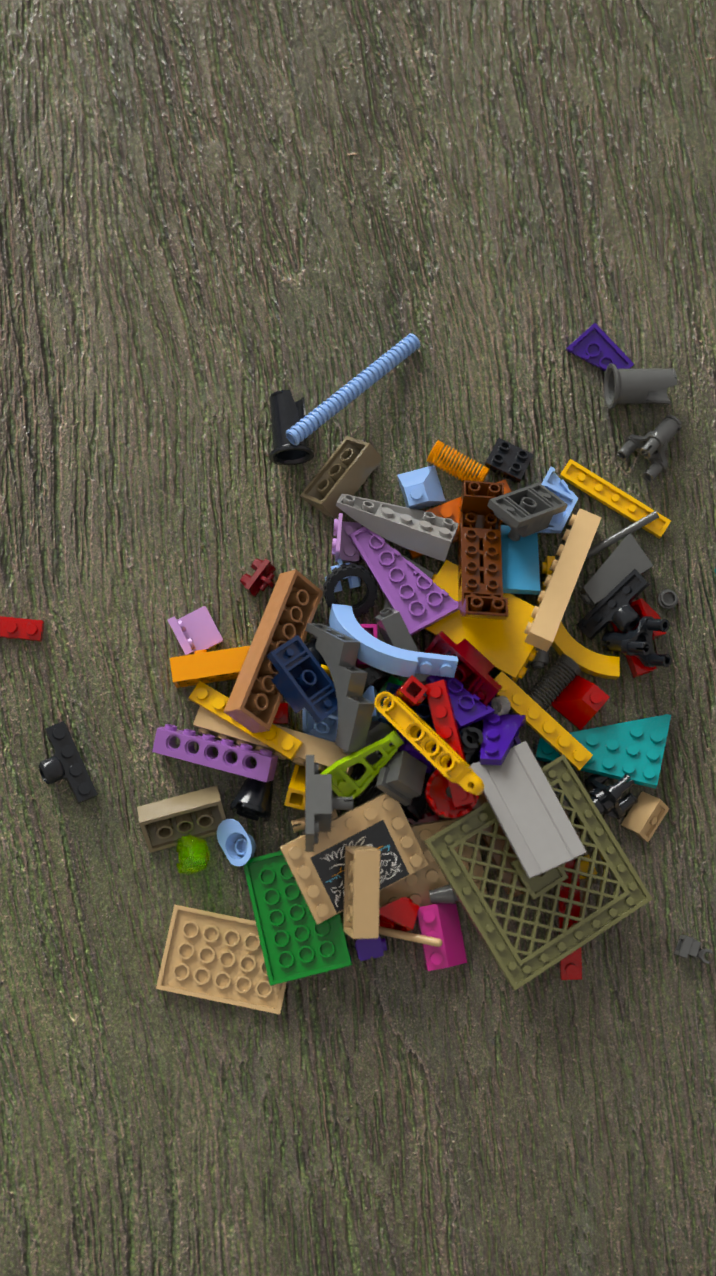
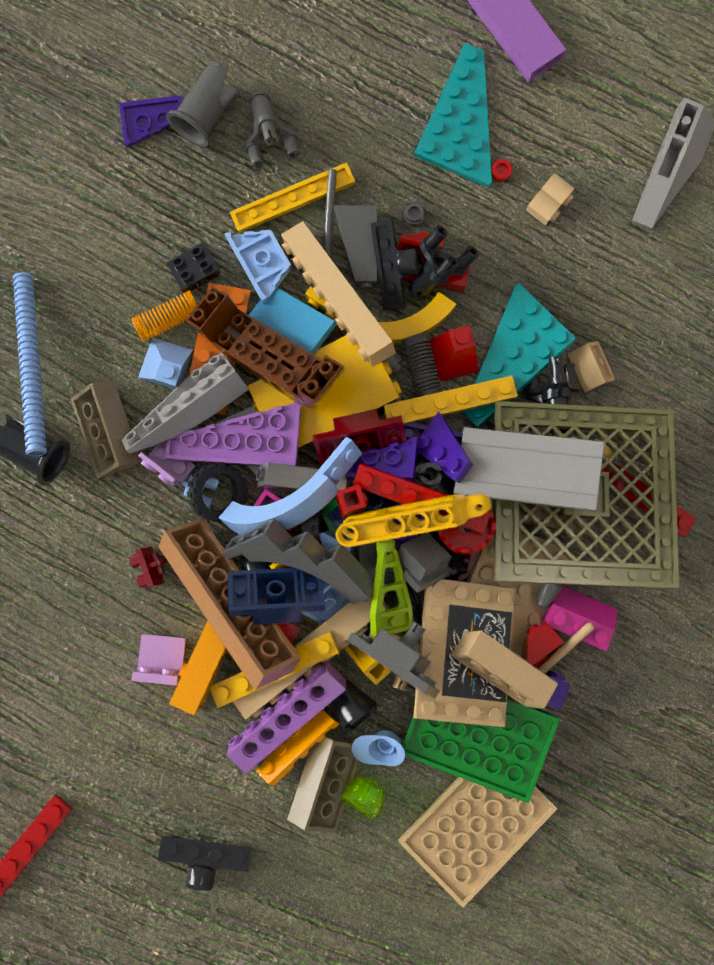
camera: 50 degrees left, 5 degrees up
(197, 776) = (282, 759): none -> light orange wing
(500, 705) = (415, 427): light grey axle -> none
(527, 509) = (251, 281): dark grey brick -> none

